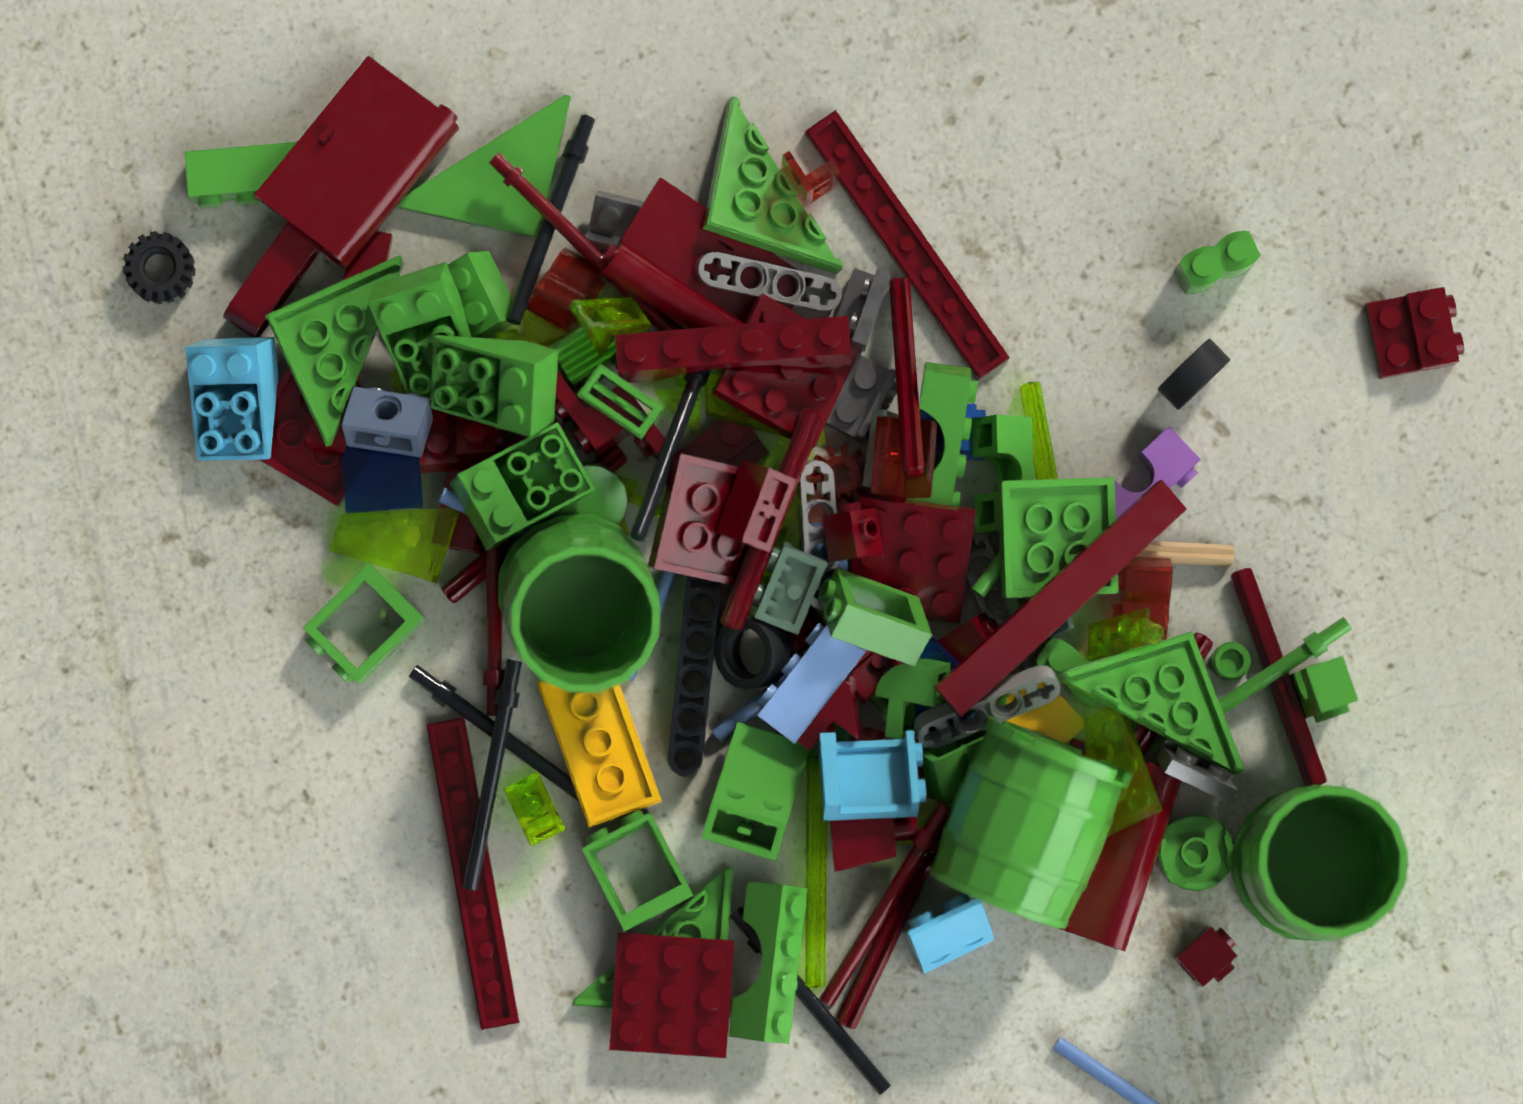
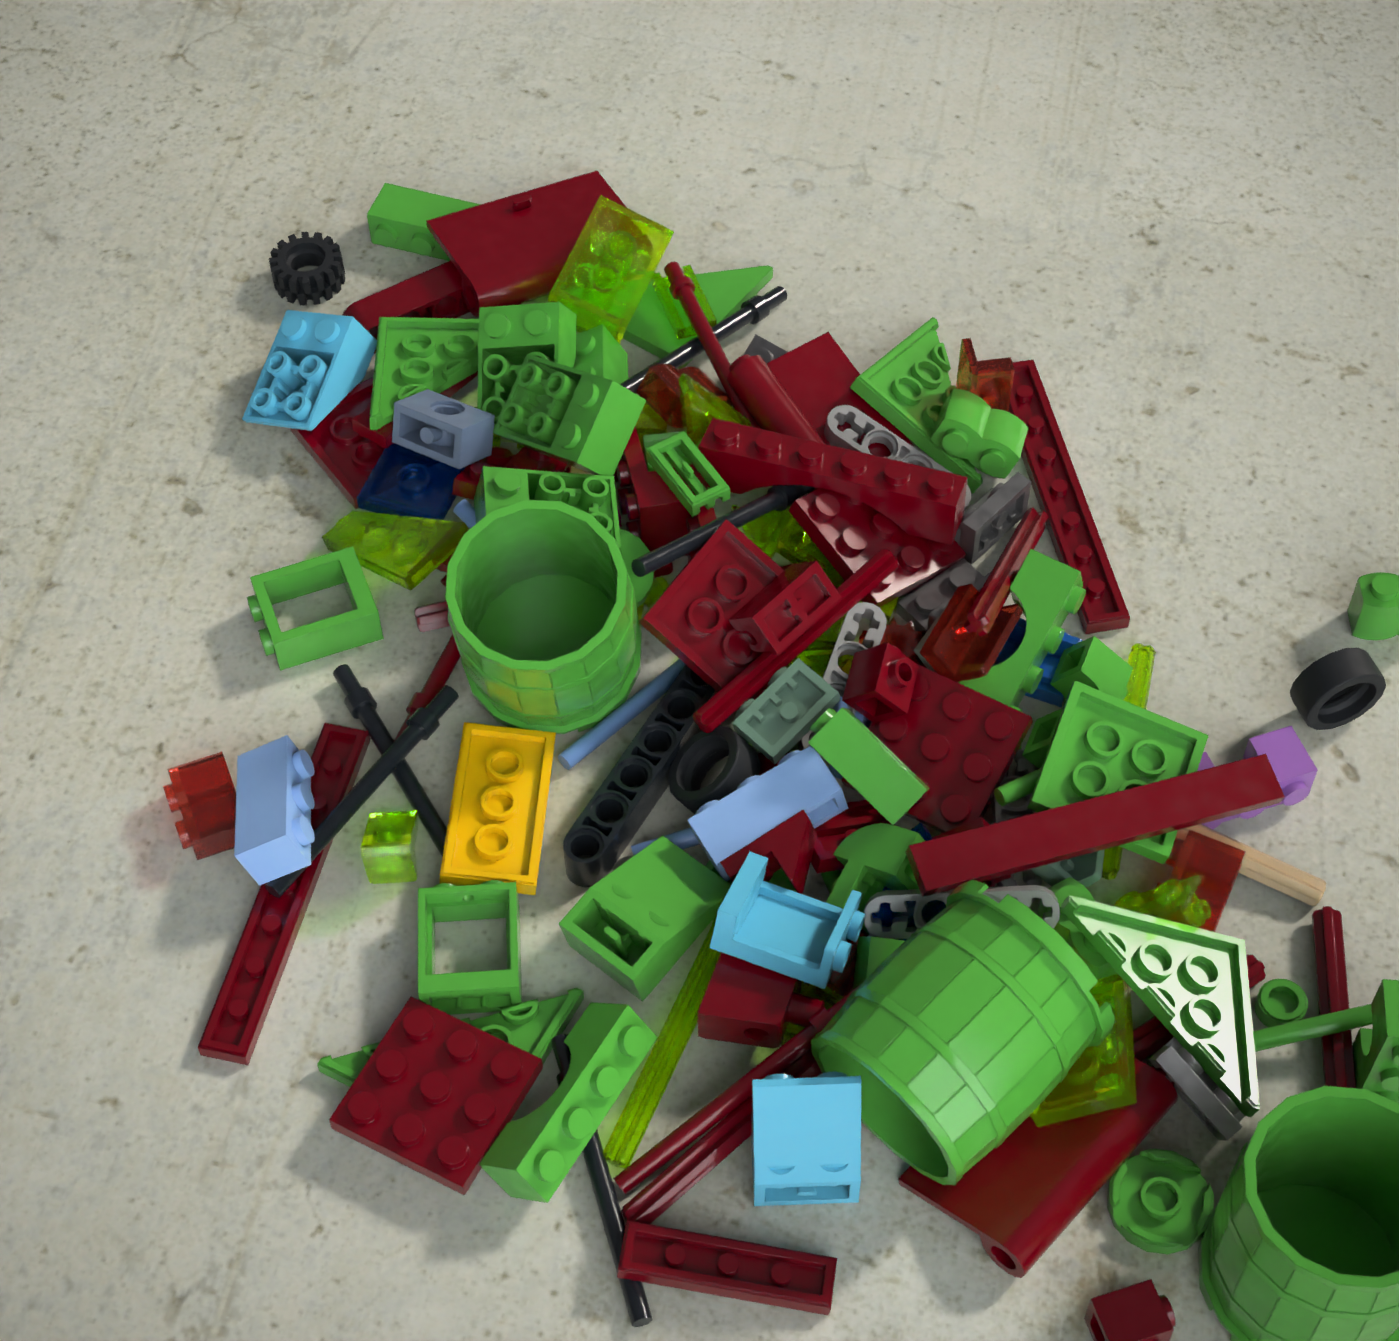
camera: 30 degrees right, 30 degrees down
(379, 837) = (207, 804): none -> clear red brick
(439, 828) = (274, 810): none -> light blue brick
(445, 192) = (611, 267): none -> clear neon green brick
(490, 151) = (661, 284): none -> clear neon green tile
(826, 227) = (978, 433): none -> bright green brick
(926, 1030) = (727, 1267): none -> dark red tile

